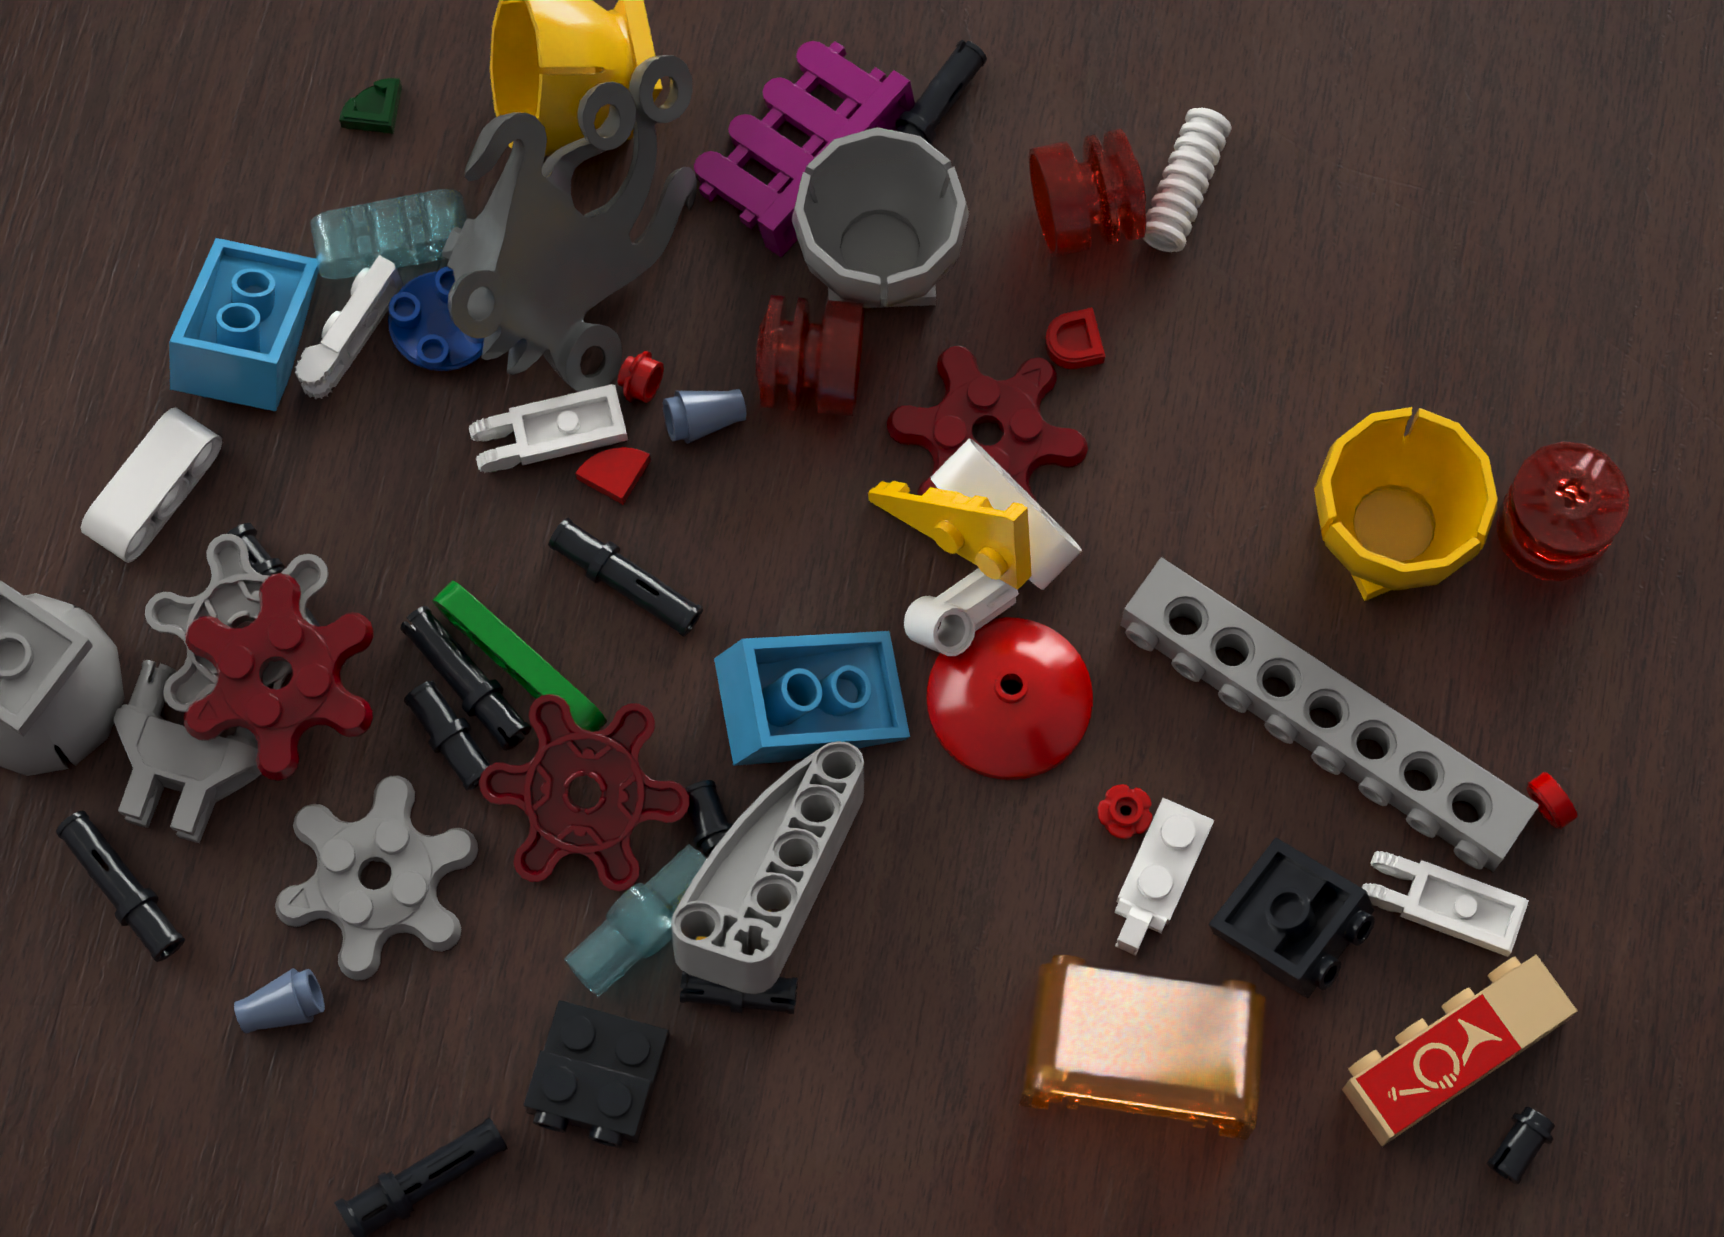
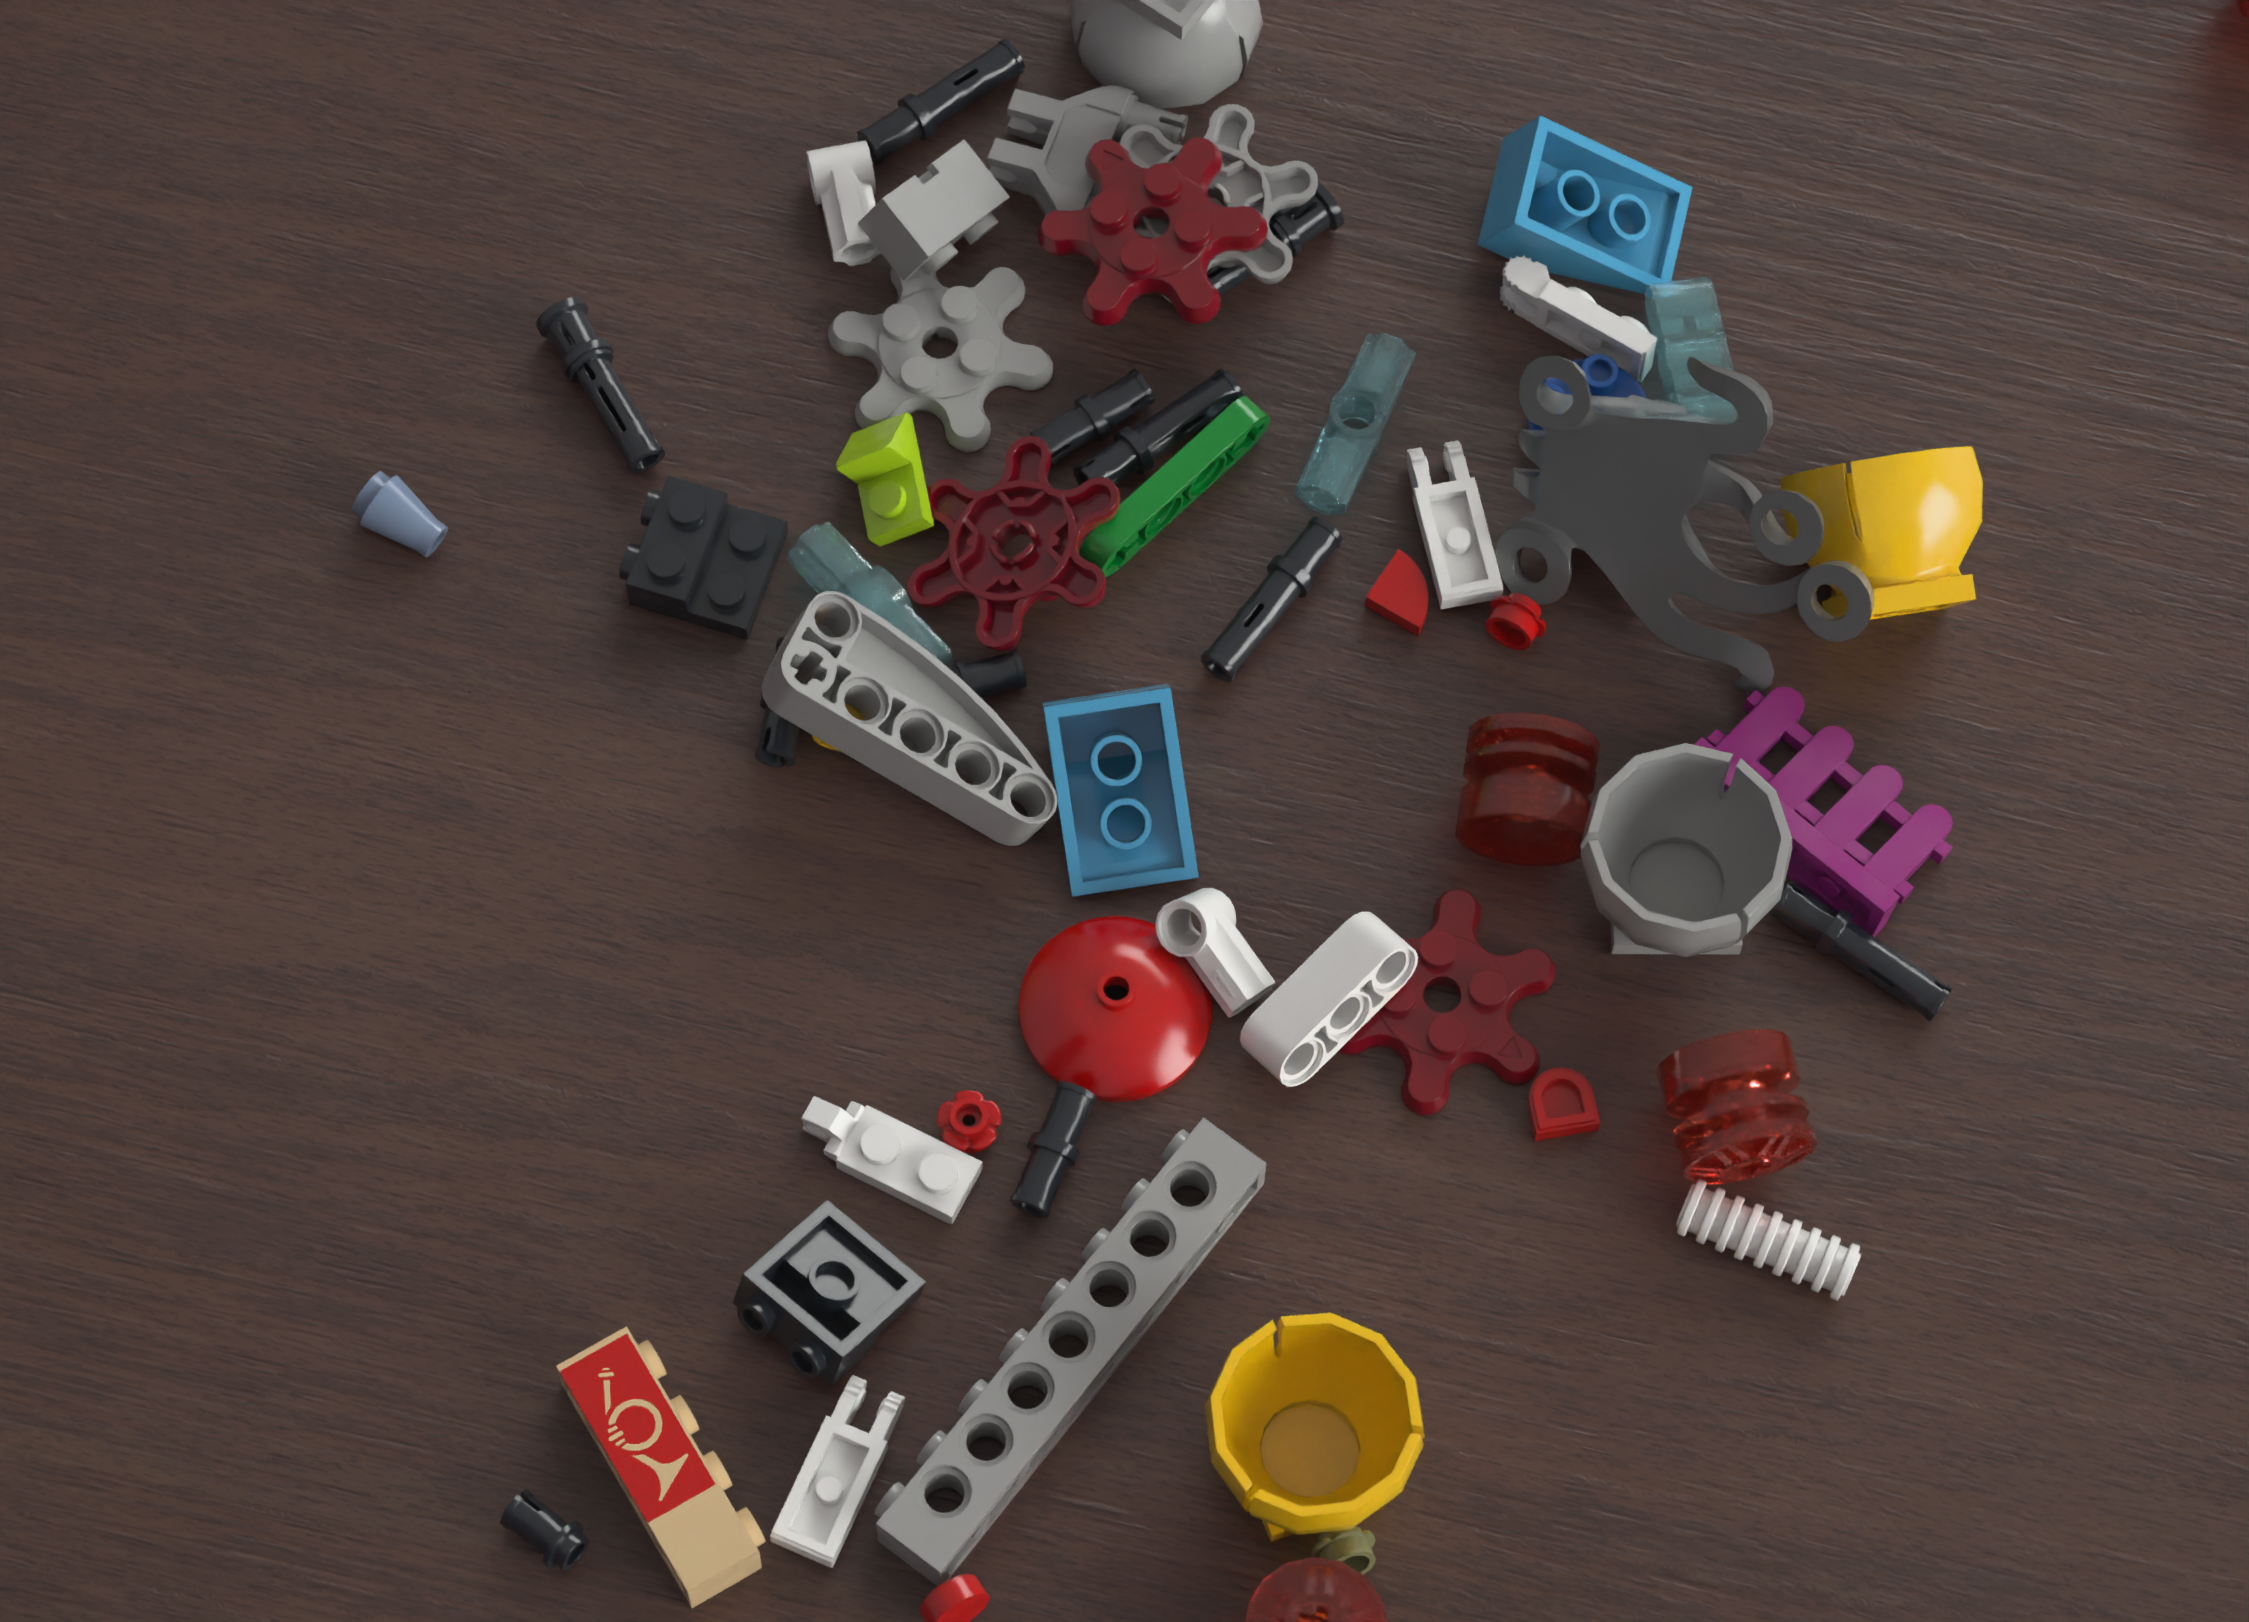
camera: 90 degrees right, 5 degrees down
(151, 485) = (1393, 124): white beam -> none
(209, 967) = (845, 188): none -> white piece
(251, 873) = (932, 212): none -> light grey brick
(283, 1002) = (804, 258): sand blue cone -> none
(374, 107) = (1860, 351): dark green tile -> none
(425, 496) = (1344, 451): none -> clear light blue piece
(512, 910) = (889, 479): none -> lime slope
(700, 413) = (1467, 679): sand blue cone -> none
(965, 526) = (1302, 938): yellow wing -> none
(1145, 1046) = (680, 1116): clear orange windscreen -> none
(1147, 739) = (1053, 1149): none -> black pin

